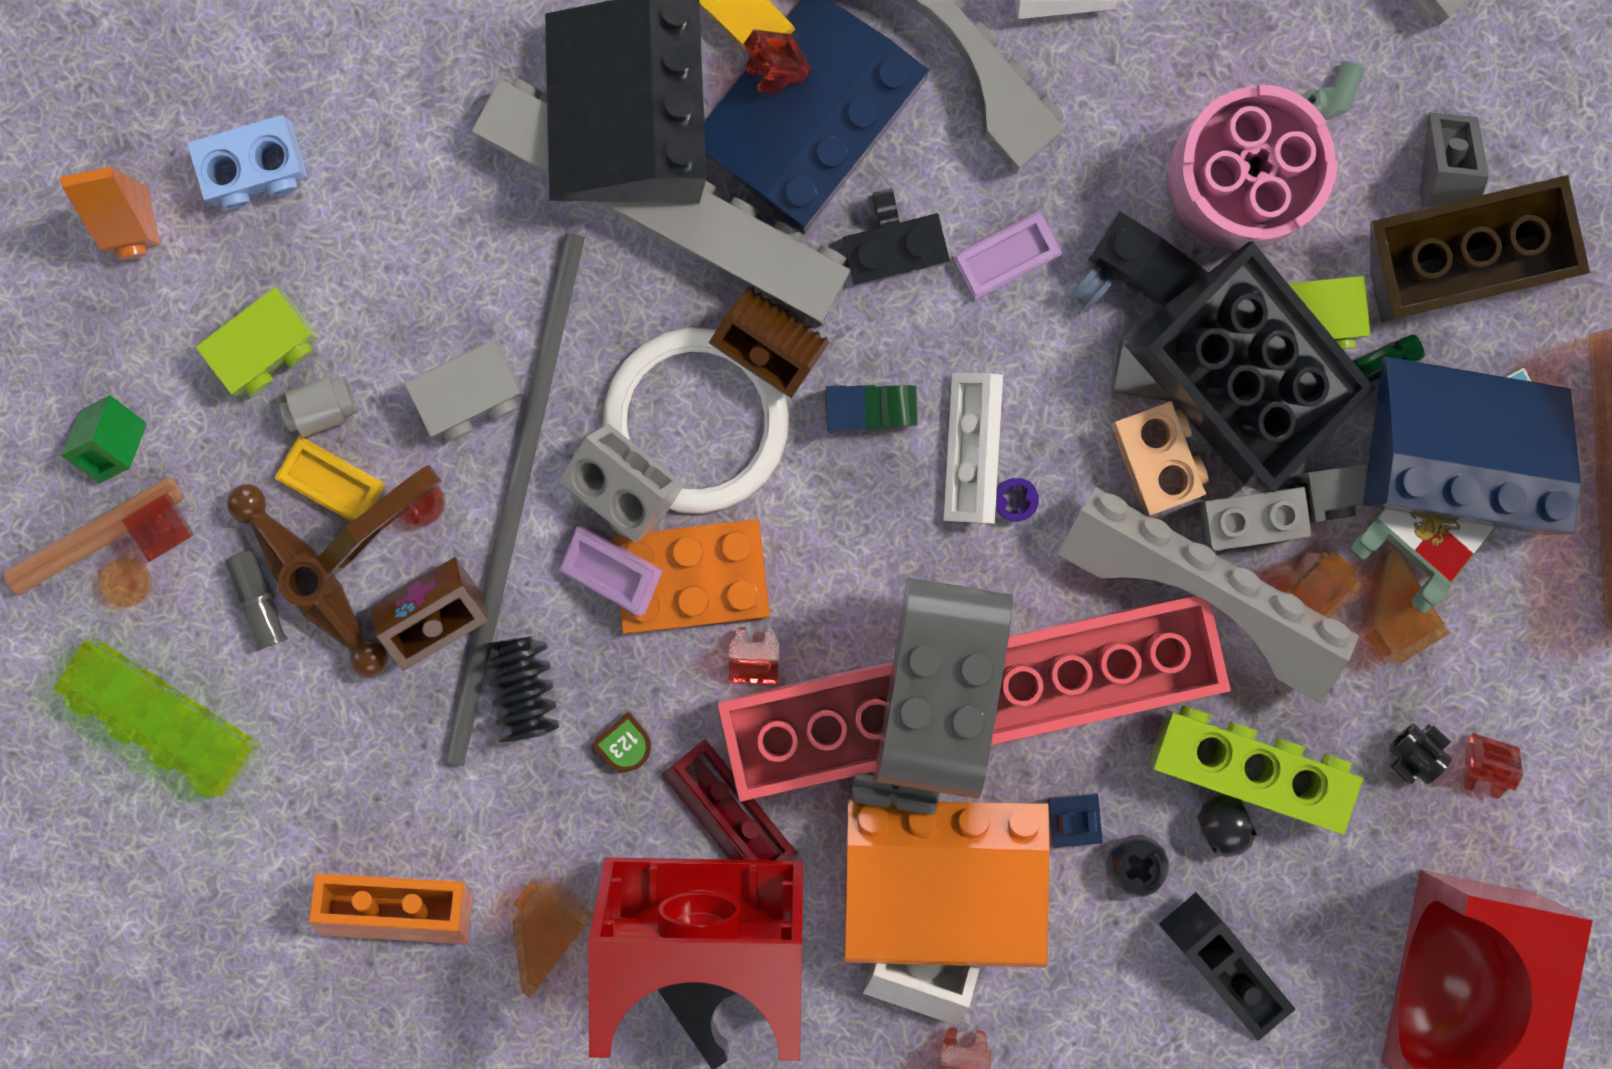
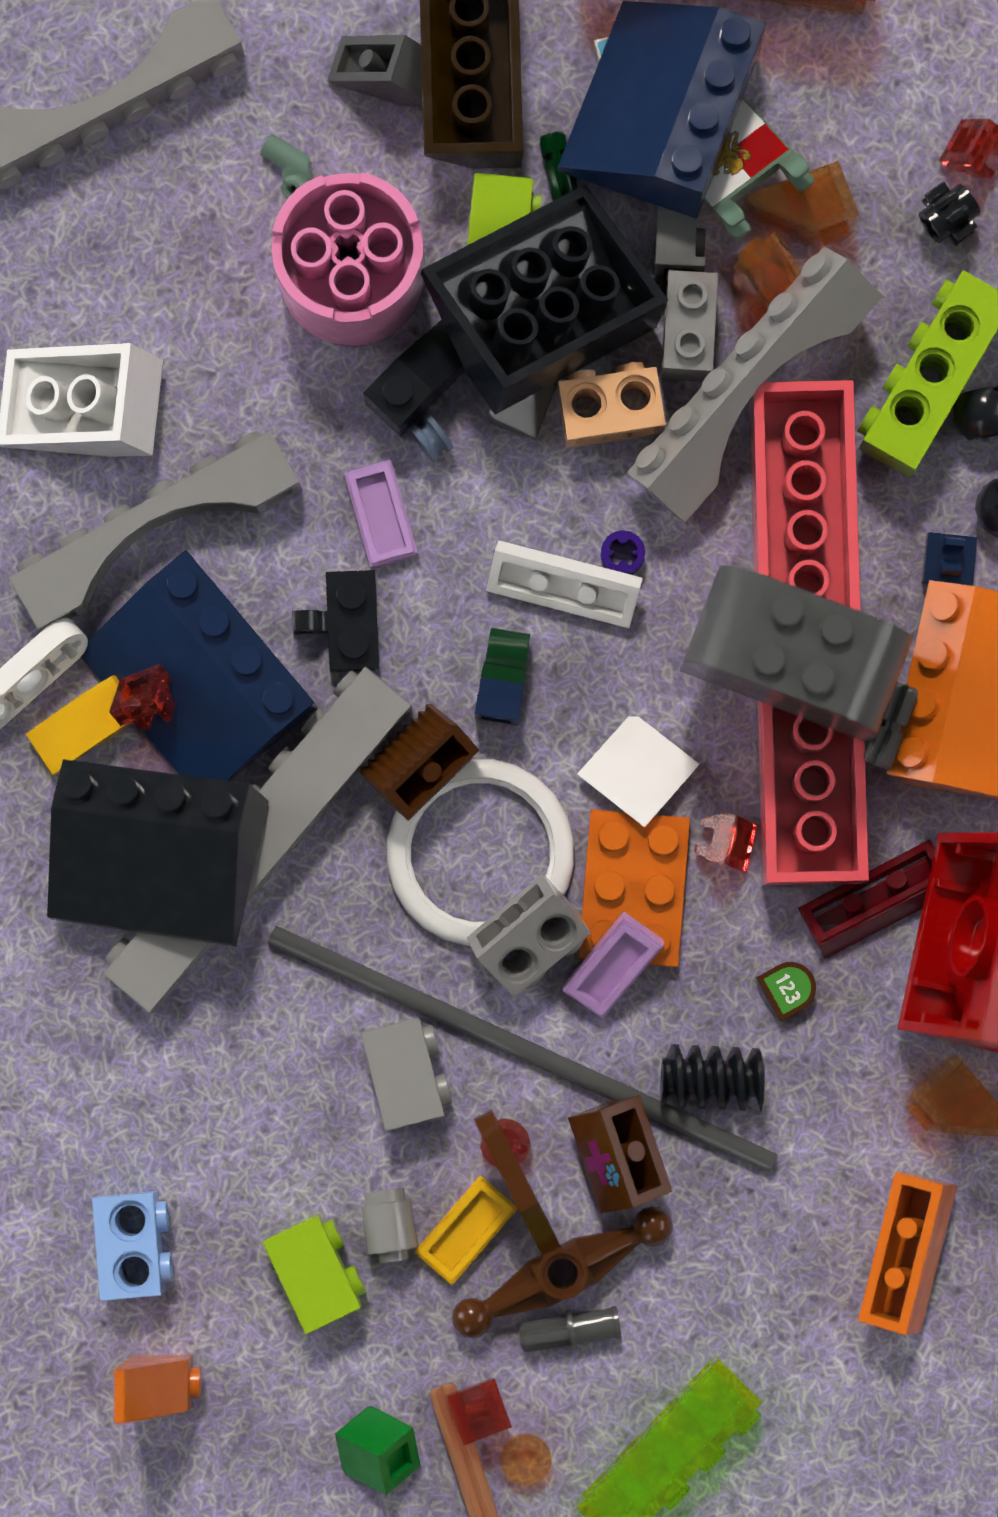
camera: 75 degrees left, 5 degrees down
(807, 557) = (638, 769): none -> white sticker

